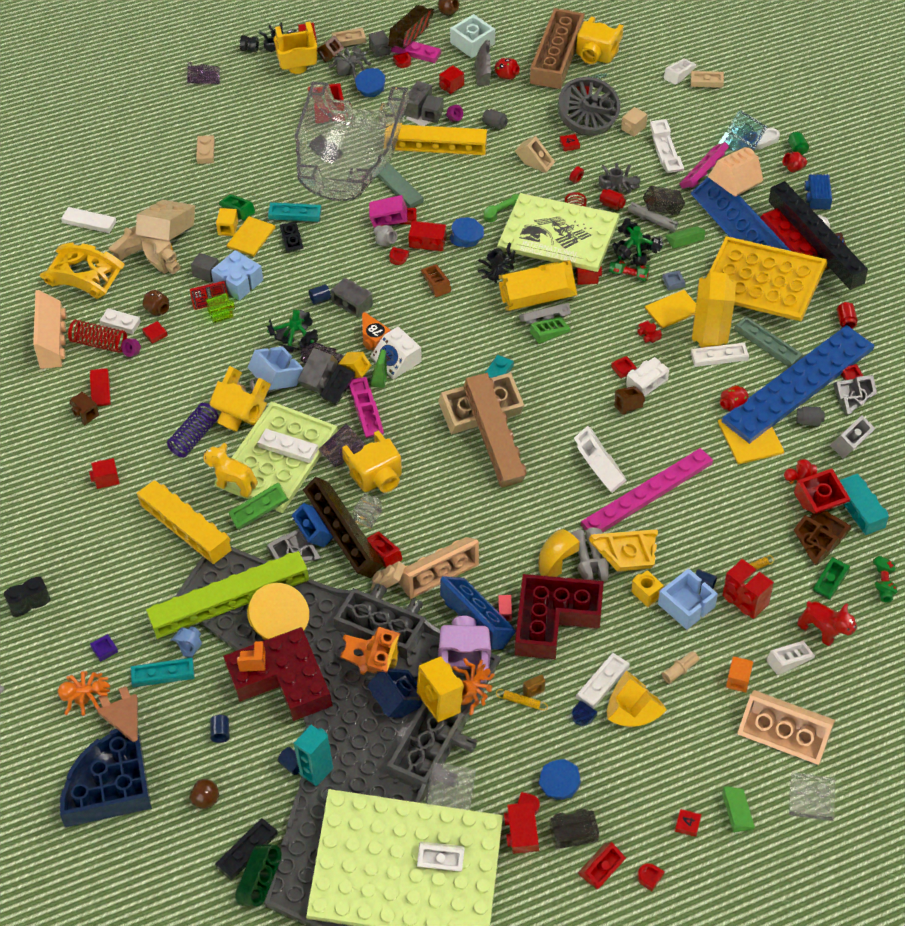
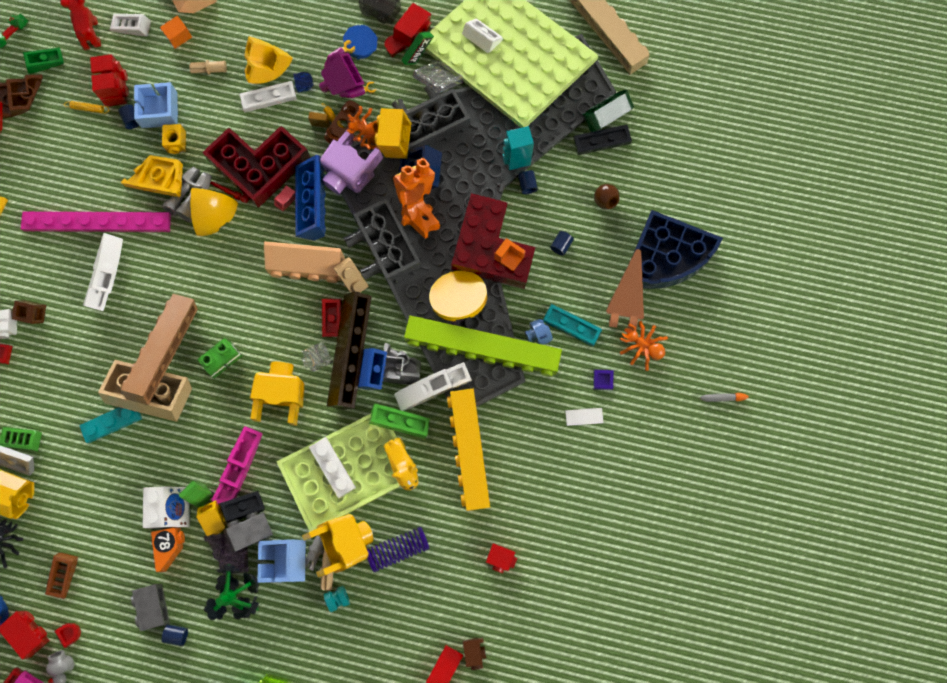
camera: 140 degrees left, 25 degrees up
(27, 596) = (644, 469): black brick -> none
(102, 612) = (584, 416): none -> white sticker
(217, 374) = (336, 599): none -> teal wheel
(246, 543) = (432, 386): none -> white slope
(333, 447) = (288, 434): slope -> none
(446, 461) = (219, 355): none -> bright green hips
(495, 803) = (417, 48): none -> green tile
(506, 682) = (335, 132): none -> reddish brown piece
(545, 731) = (342, 75): none -> magenta torso

